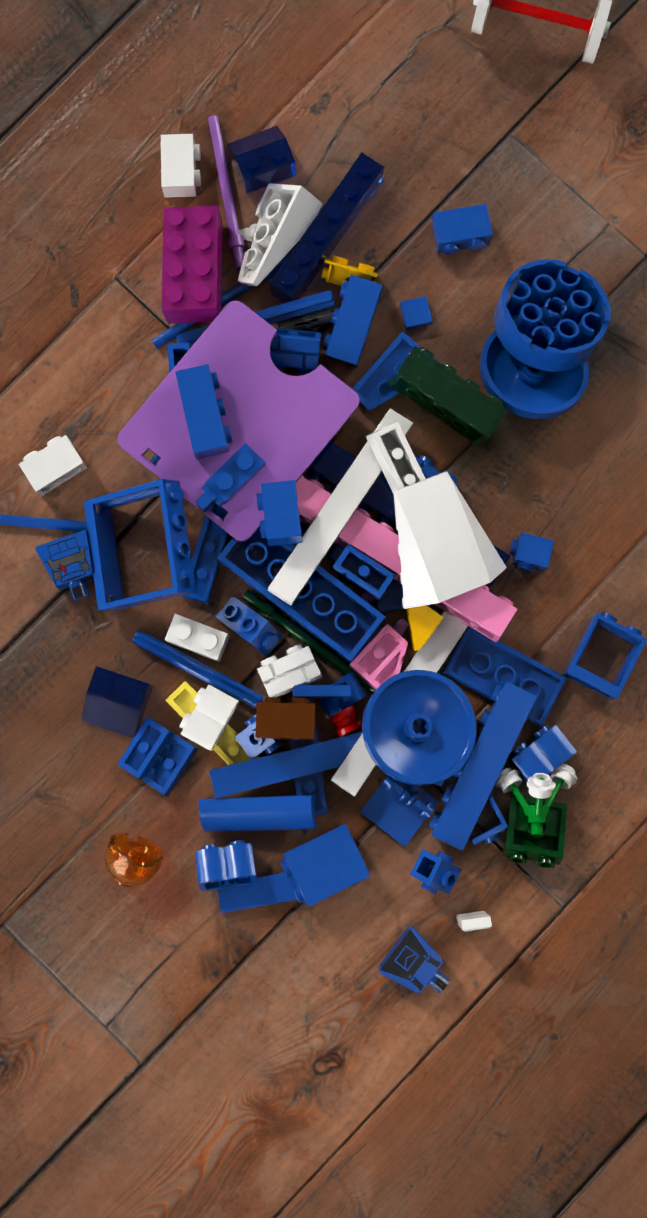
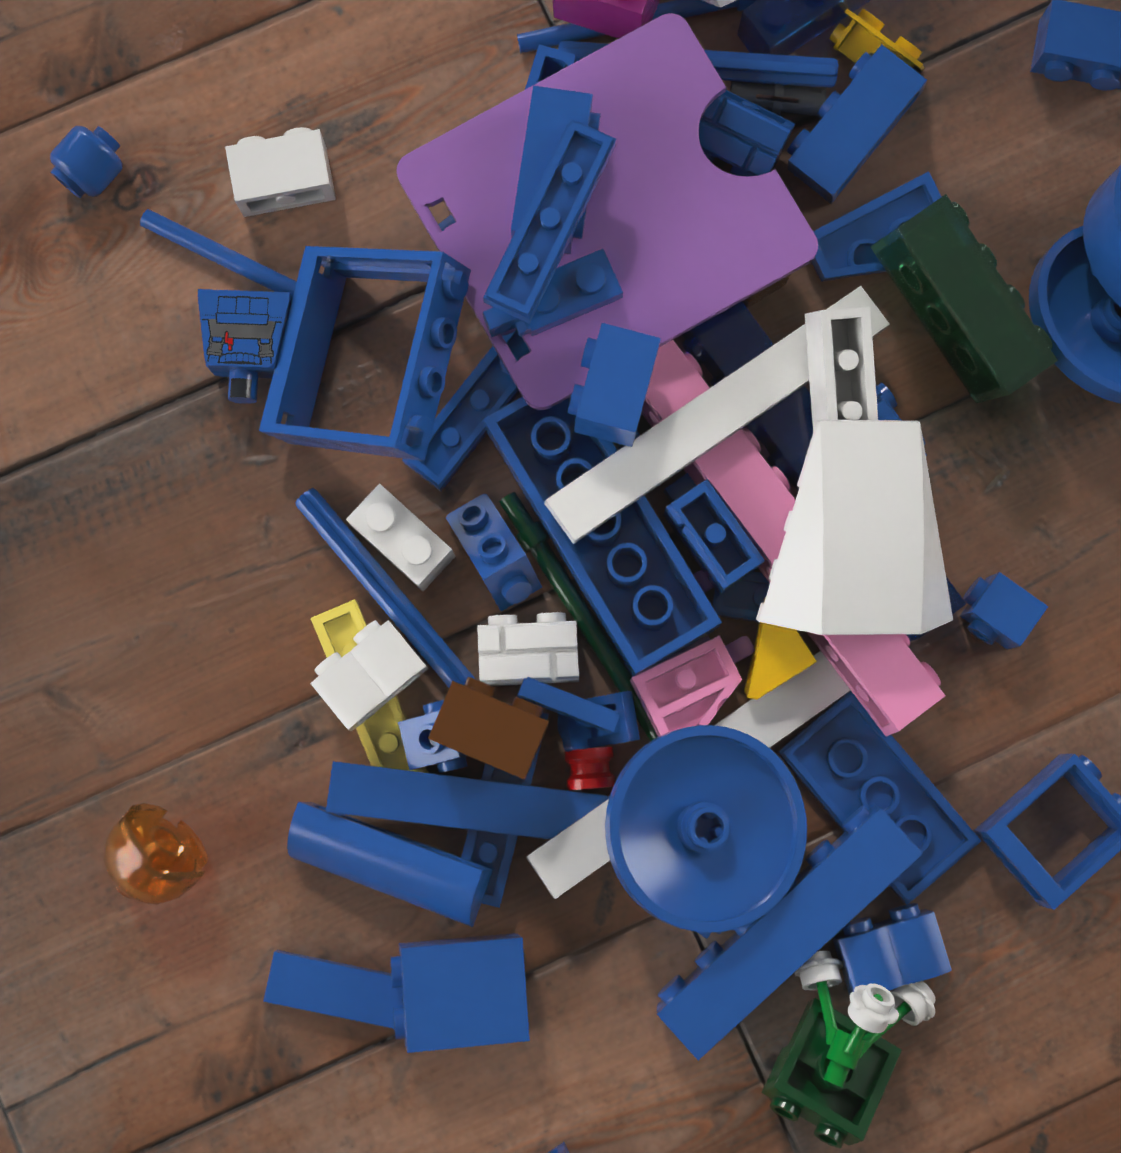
camera: 20 degrees right, 0 degrees up
(116, 702) = (230, 589): clear blue slope -> none
(157, 756) = (262, 704): blue slope -> none
(212, 440) = (549, 220): none -> blue tile
(225, 866) = (300, 927): blue brick -> none
(399, 808) = (620, 947): blue hinge -> none
(416, 313) = (960, 152): blue tile -> none
(436, 872) = (640, 1077): blue brick -> none
(493, 832) = (758, 1048): blue bracket -> none

